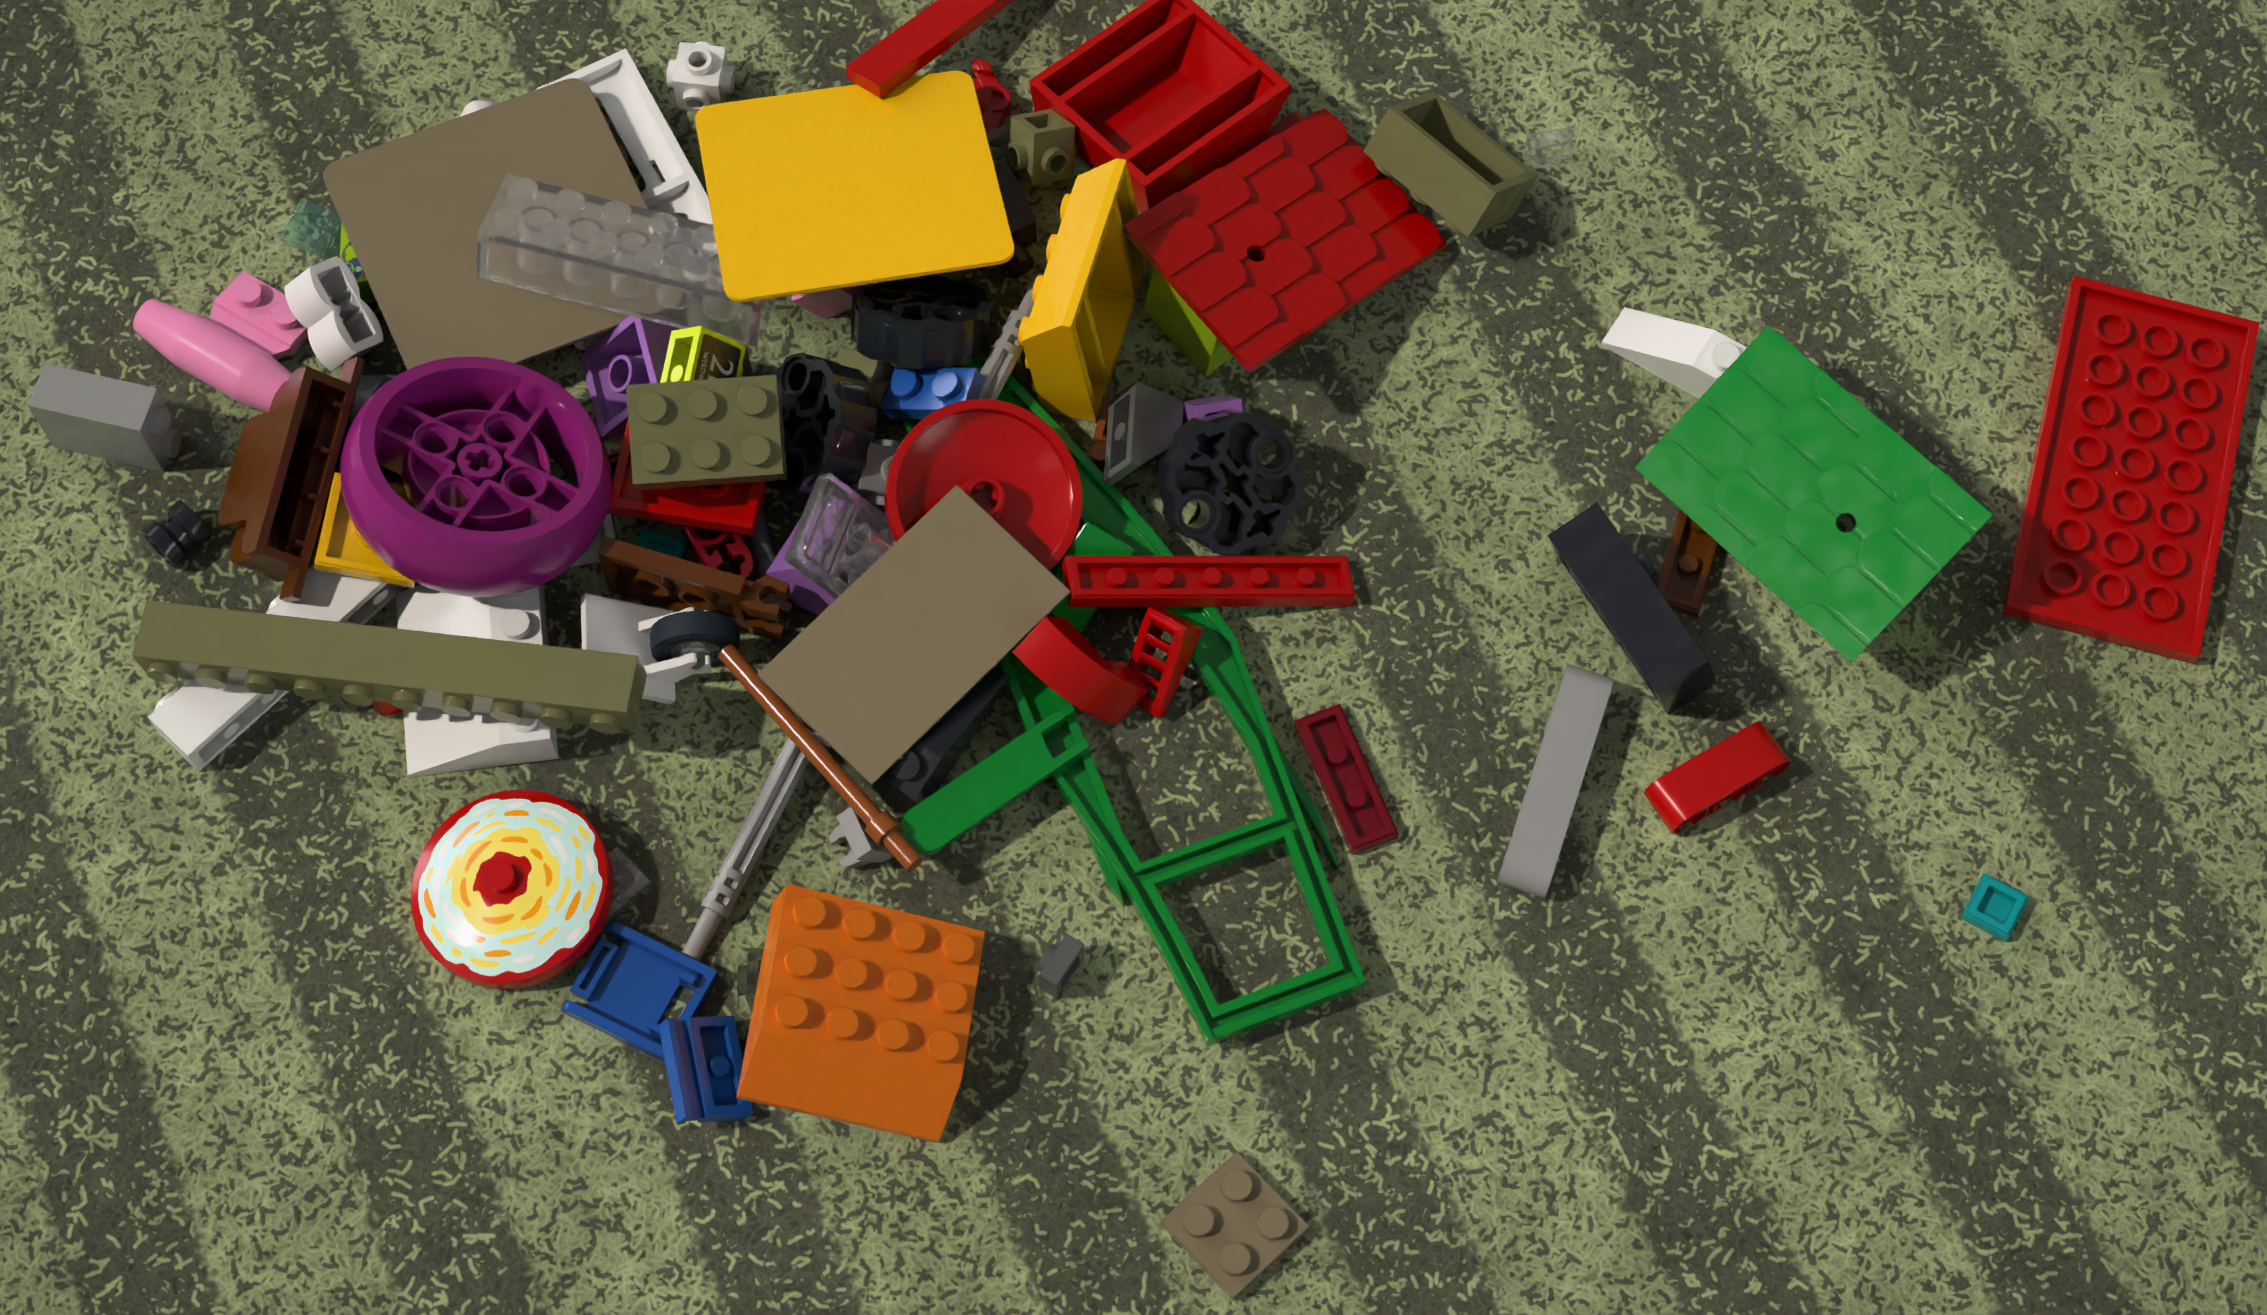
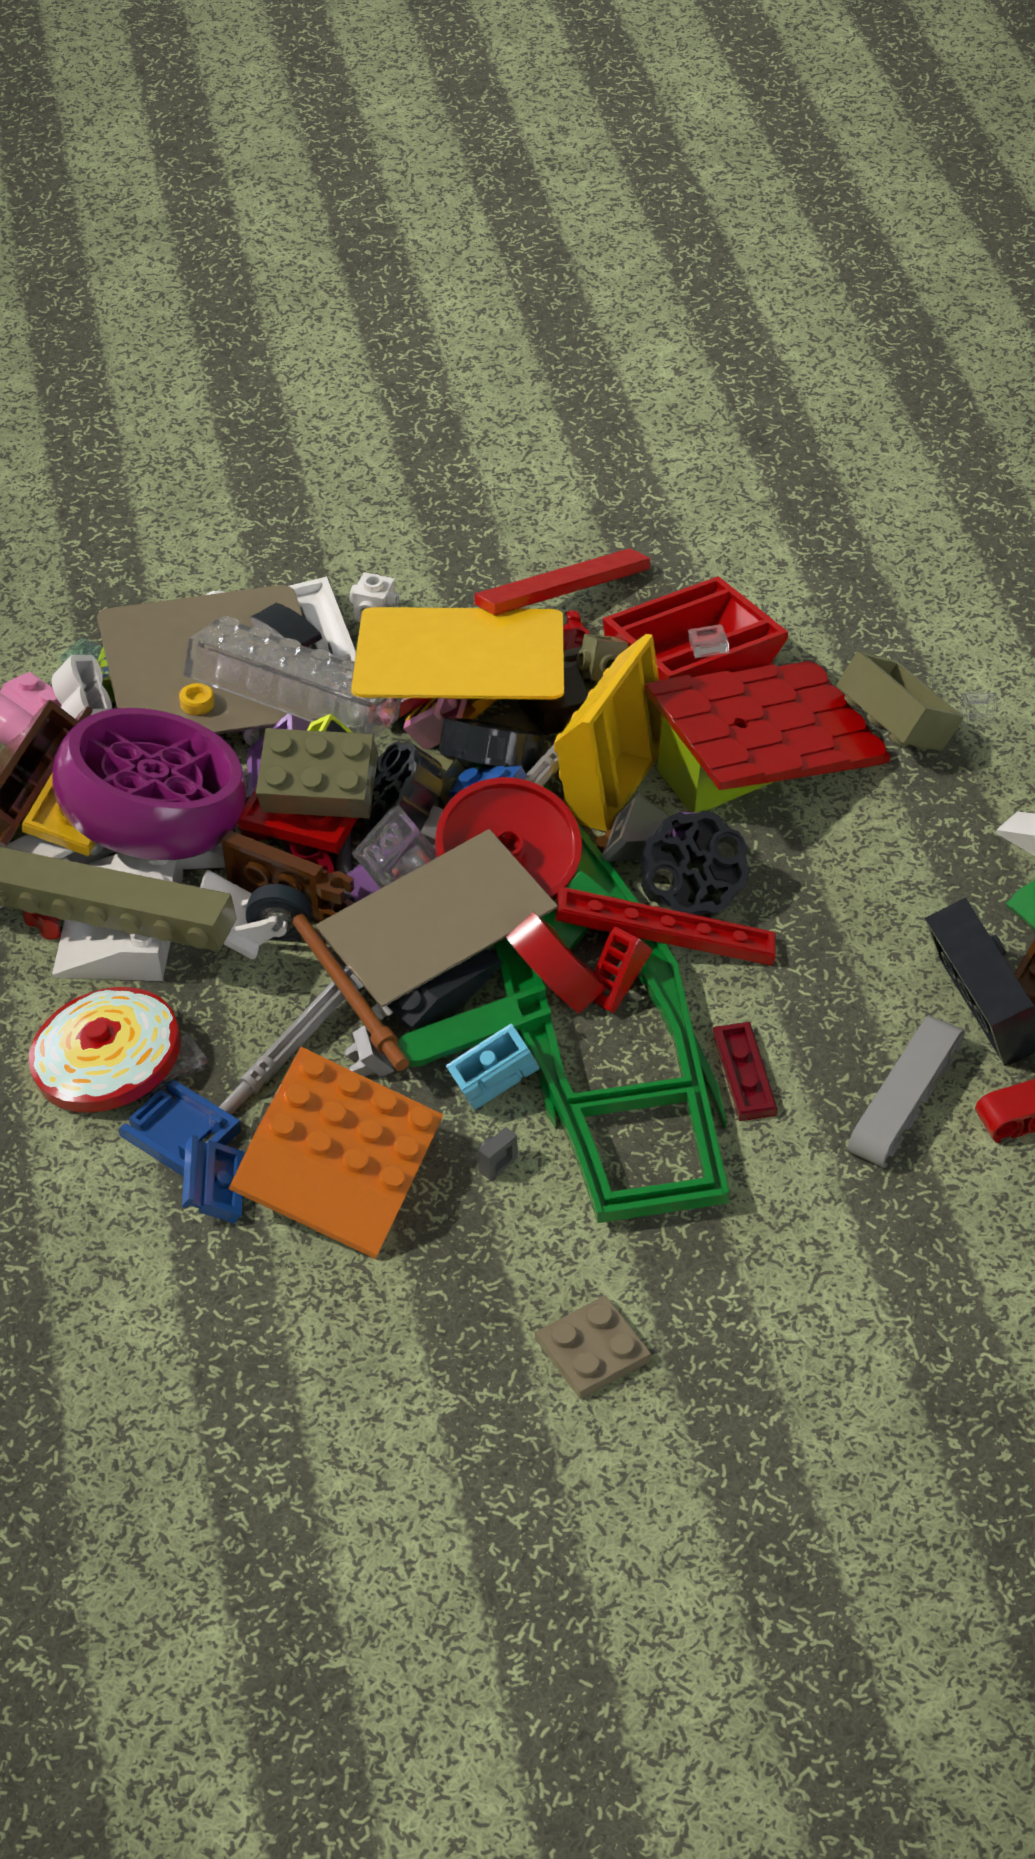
camera: 15 degrees right, 20 degrees down
(500, 306) = (196, 699): none -> yellow tile
(597, 160) = (286, 624): none -> black slope
(1030, 843) = (492, 1066): none -> medium azure brick
(1187, 118) = (708, 641): none -> clear tile

